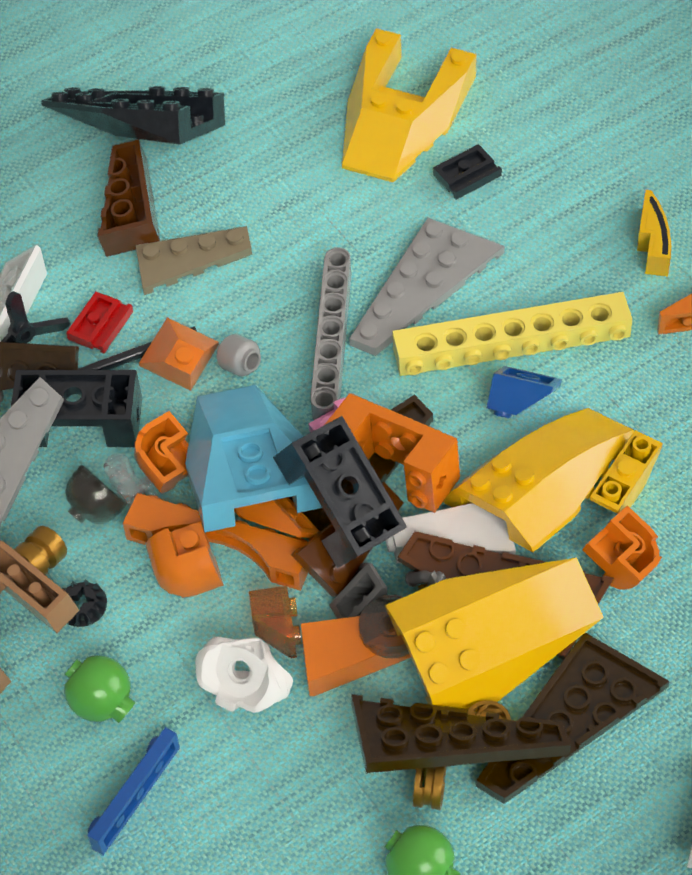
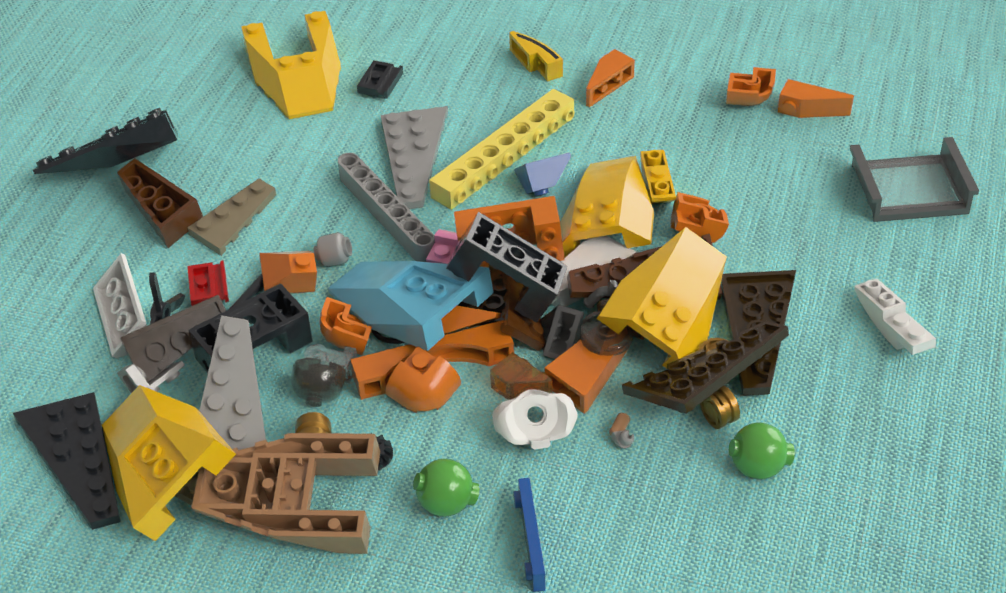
camera: 40 degrees left, 10 degrees down
(316, 740) = (619, 433): none -> arm

